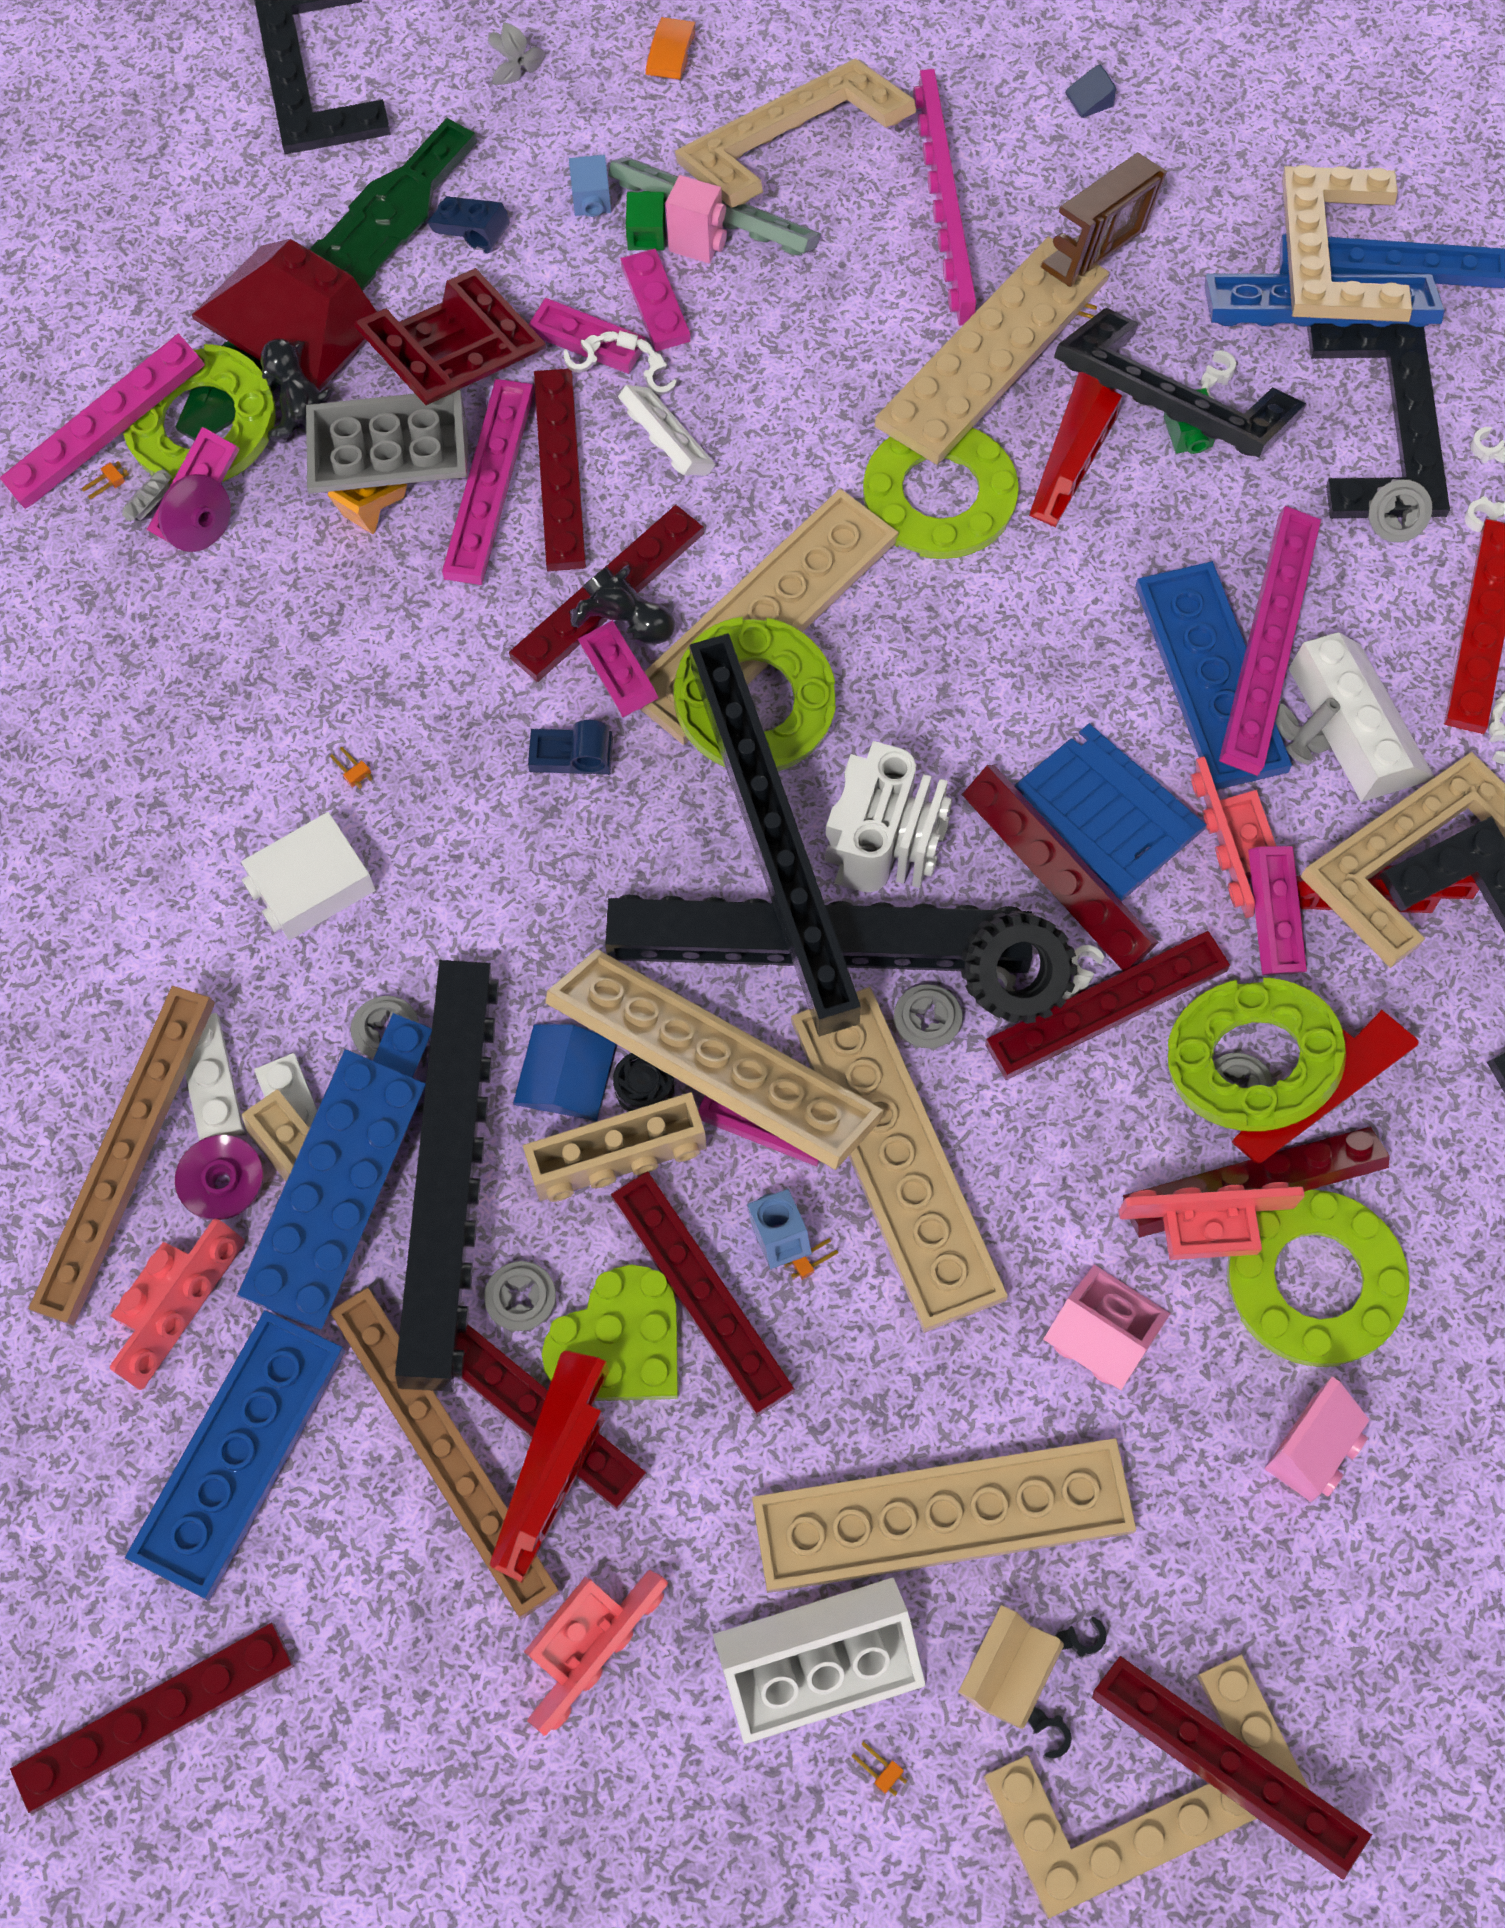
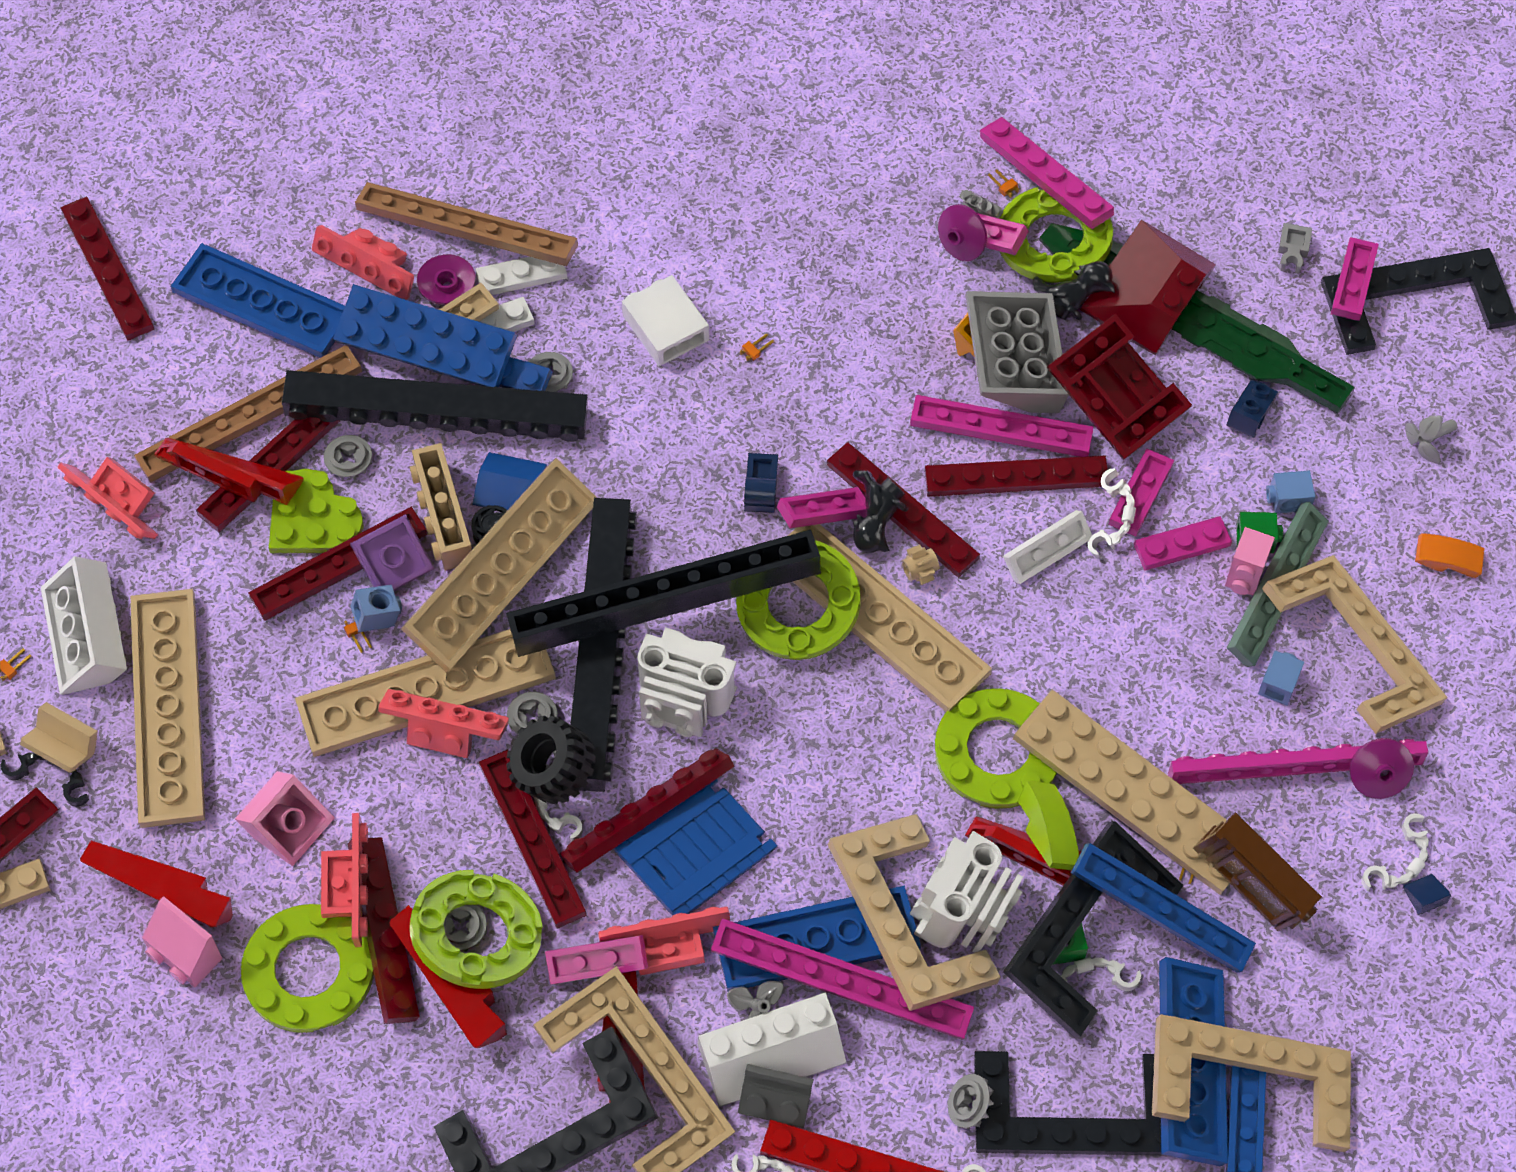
camera: 90 degrees right, 5 degrees down
(232, 169) = (1294, 245): none -> light grey plate
(297, 103) = (1354, 279): none -> dark pink plate
(693, 1213) = (392, 554): none -> medium lavender tile
(696, 564) = (920, 564): none -> tan gear
(837, 205) = (1281, 677): none -> medium blue brick
(953, 114) = (1380, 756): none -> magenta dish
(953, 1122) = (442, 724): none -> coral bracket
(1054, 422) = (1049, 824): none -> lime slope
(1057, 102) = (1414, 867): none -> white piece
(1152, 311) = (1163, 907): none -> blue plate
(1157, 502) = (964, 895): none -> white piece
(1233, 1482) = (157, 880): none -> red wedge
(1268, 552) = (917, 982): none -> tan plate
(1424, 708) = (775, 1096): none -> dark grey plate

